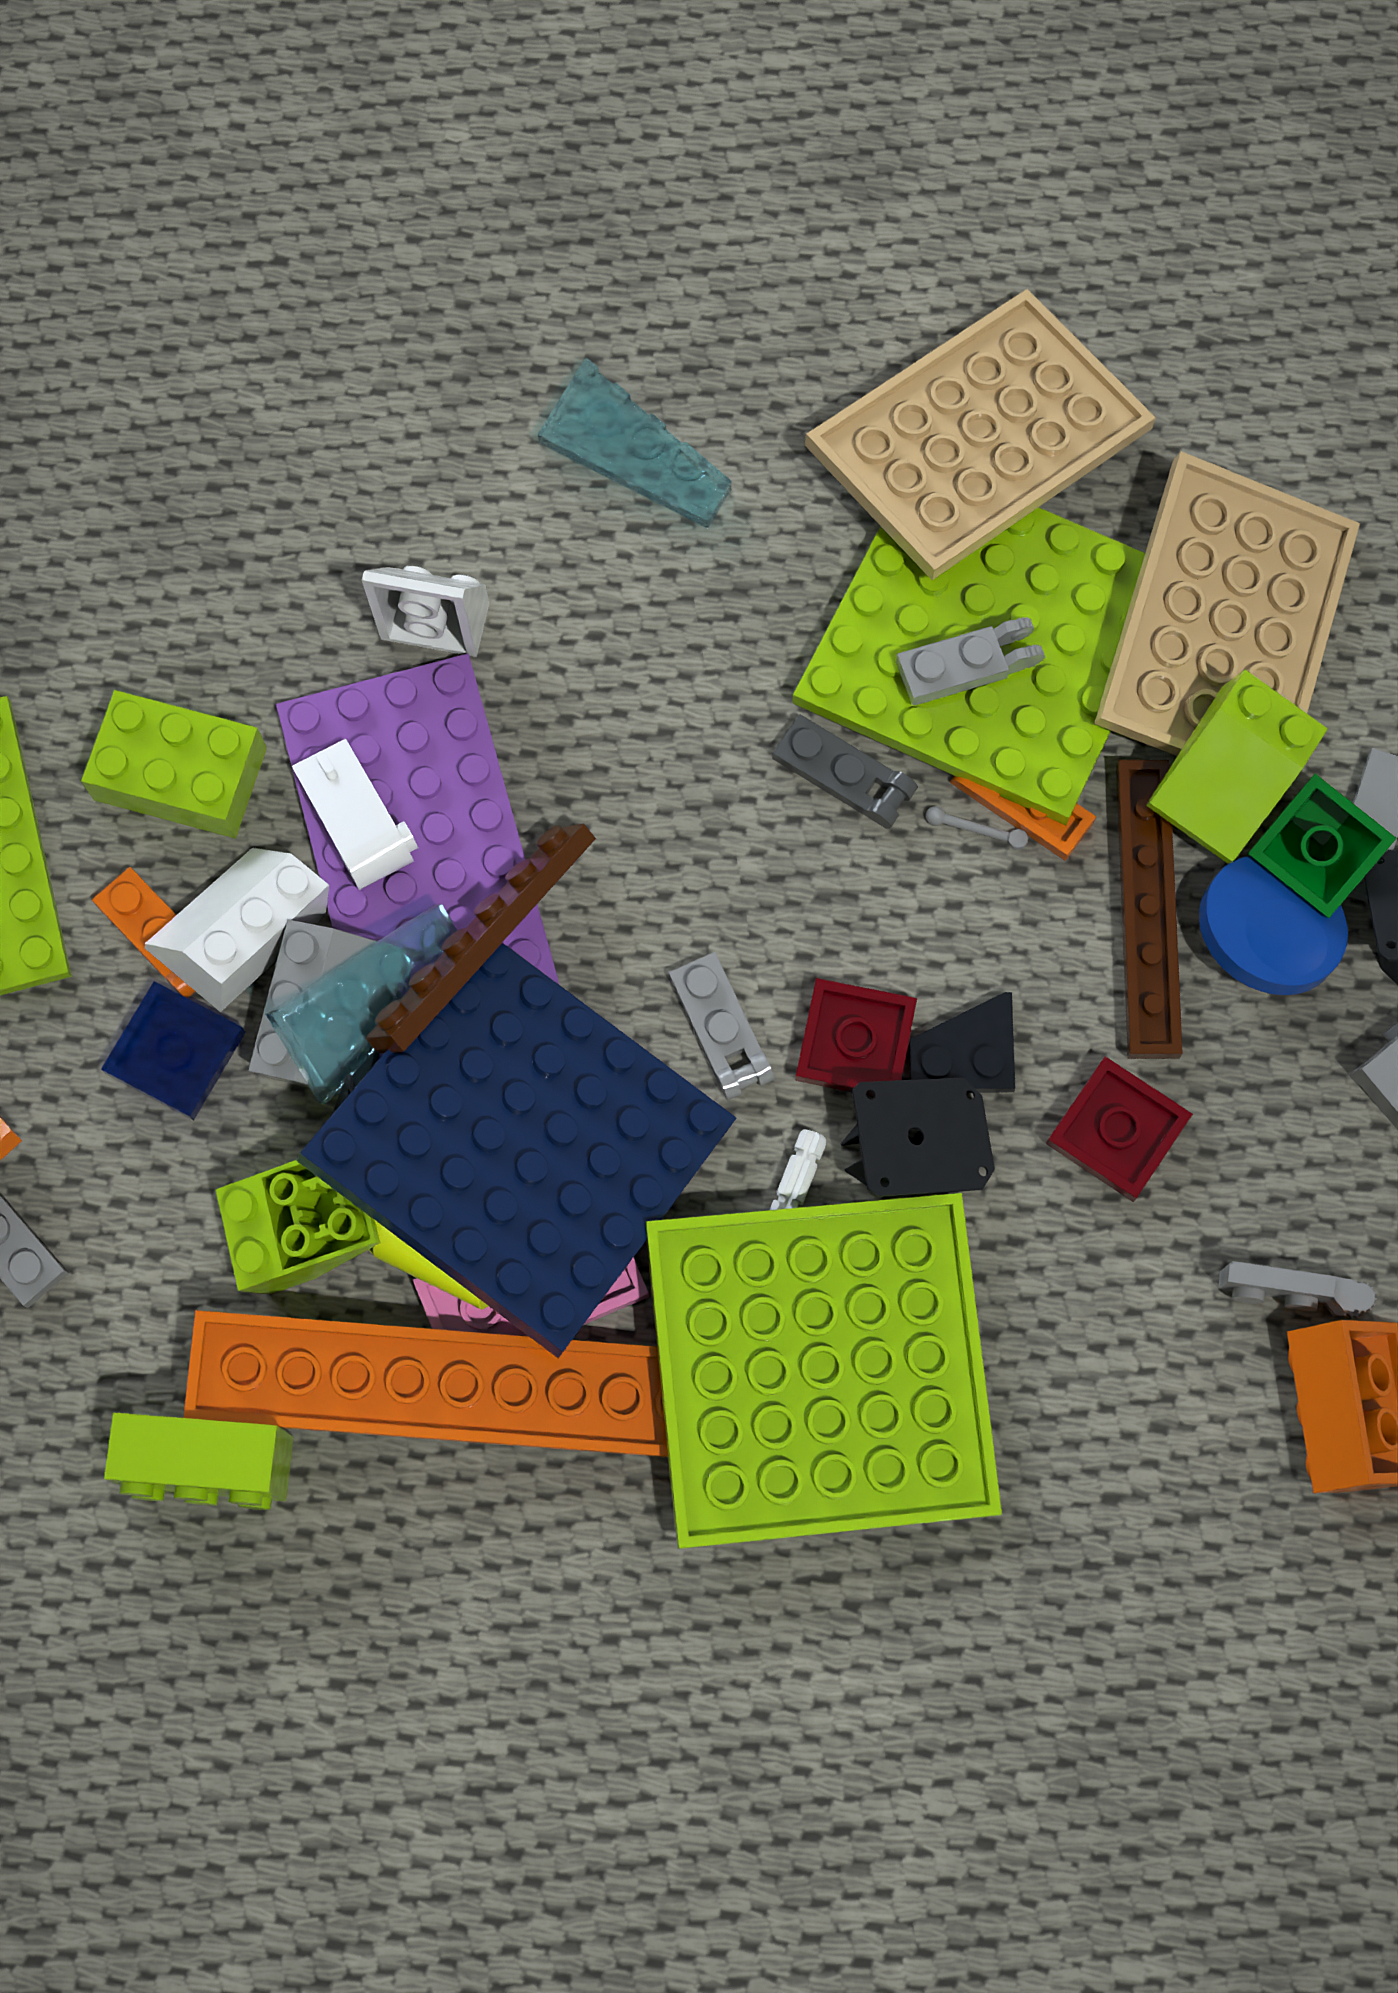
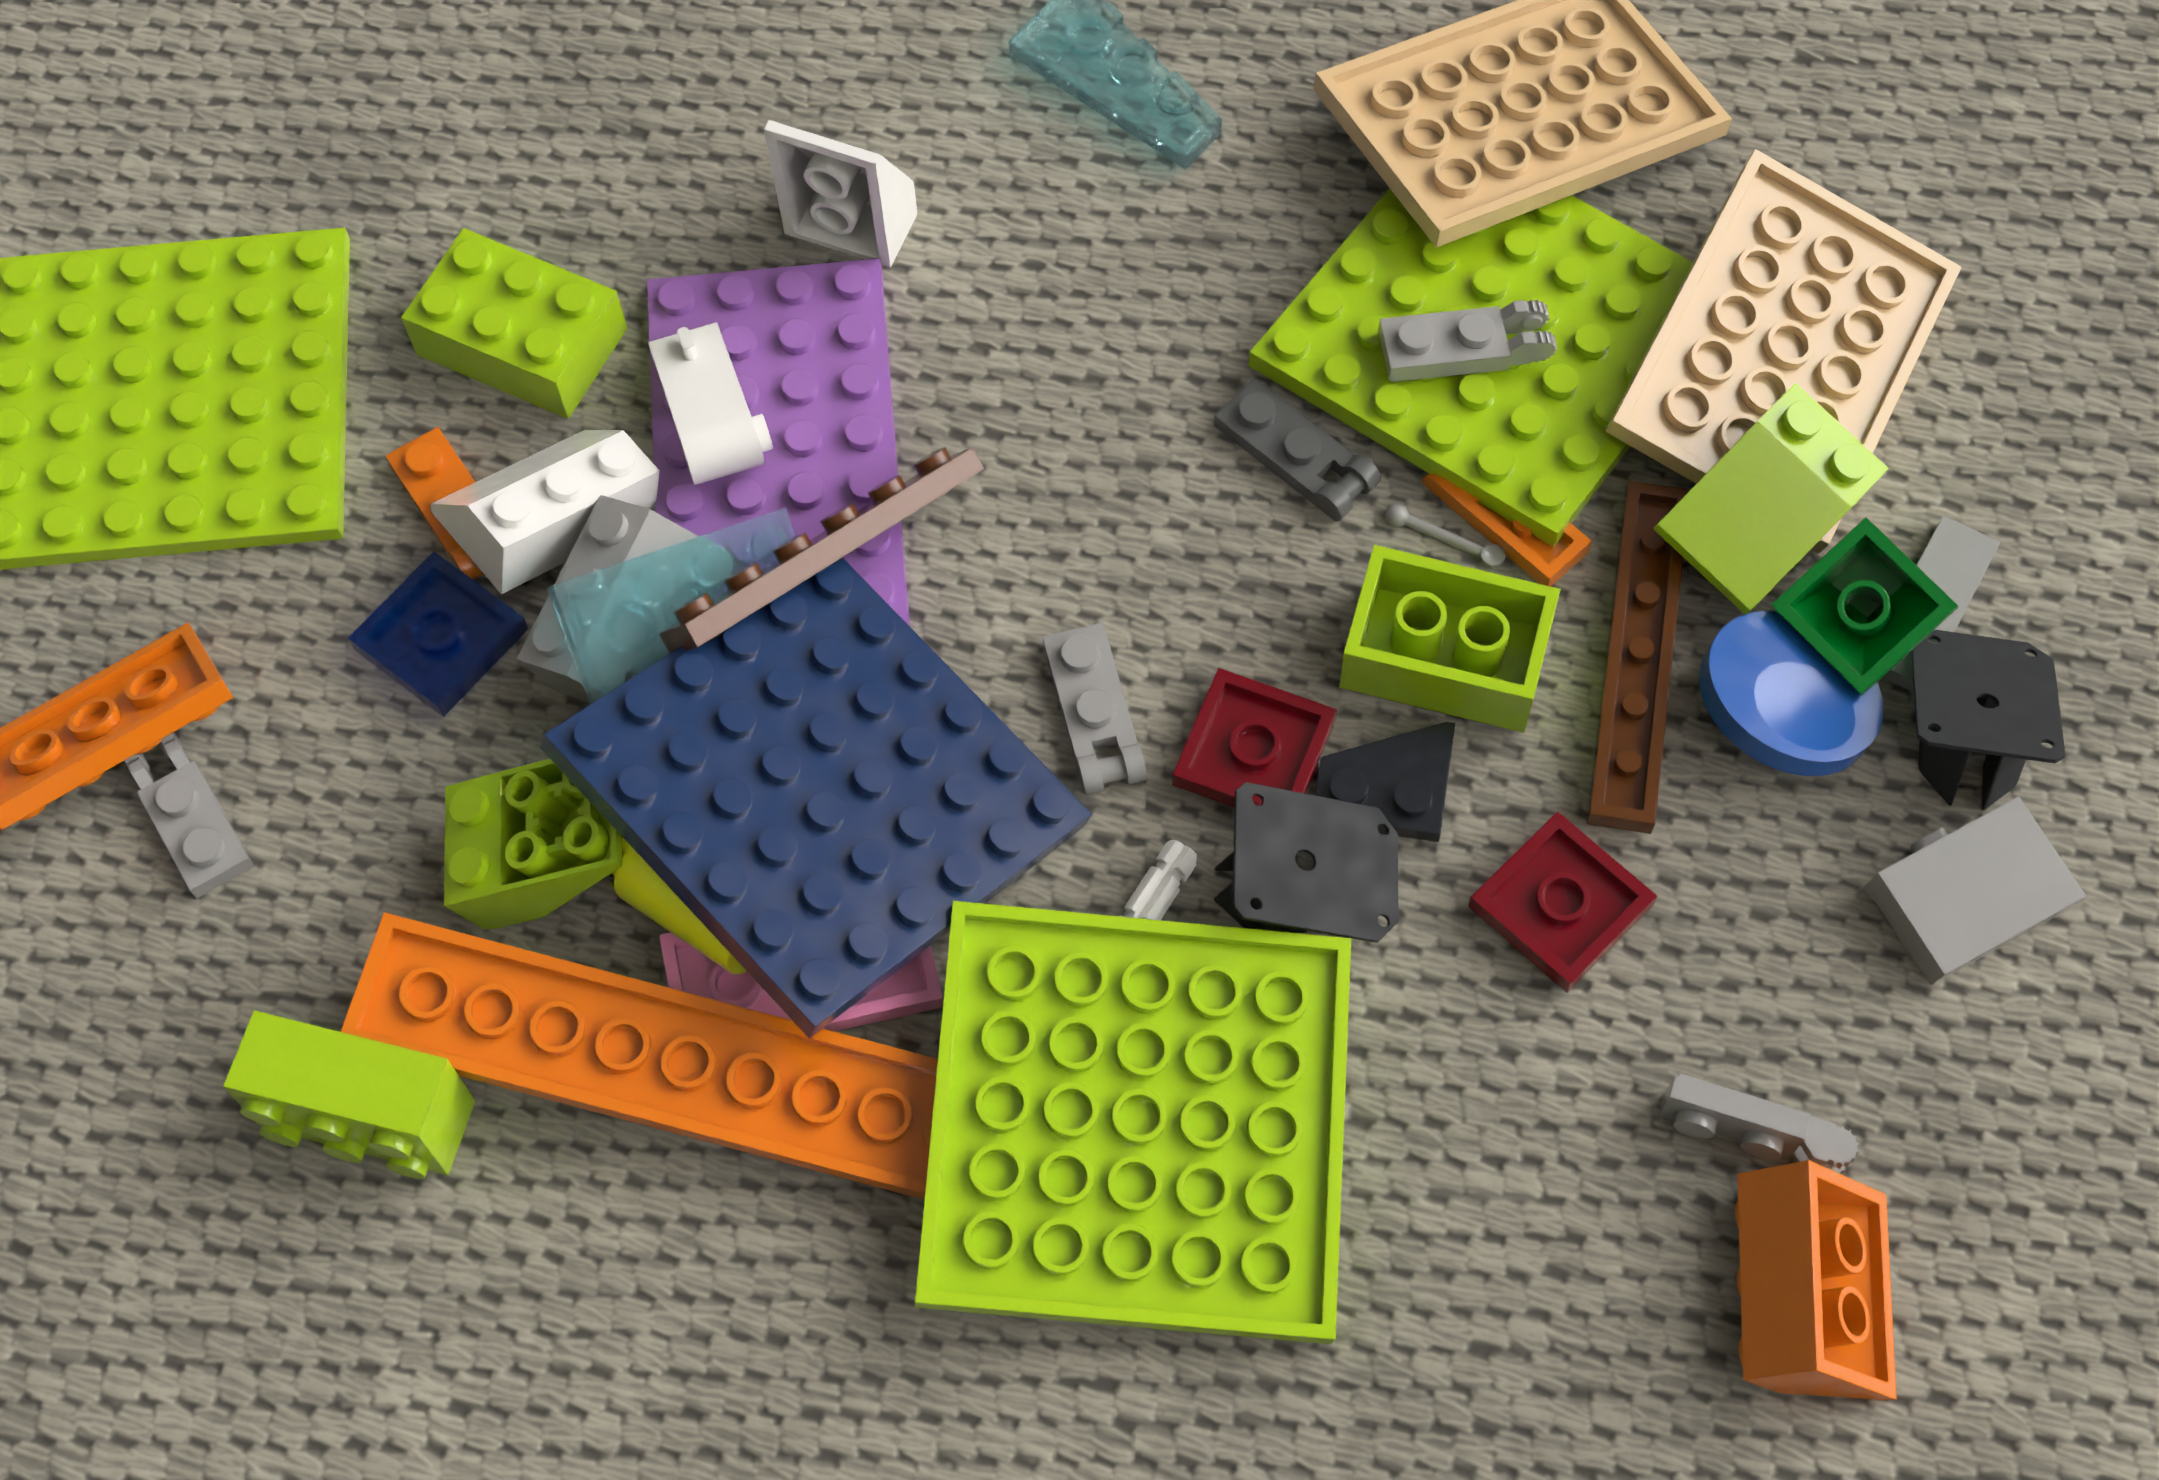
camera: 10 degrees right, 10 degrees down
(997, 924) = (1448, 638): none -> lime brick

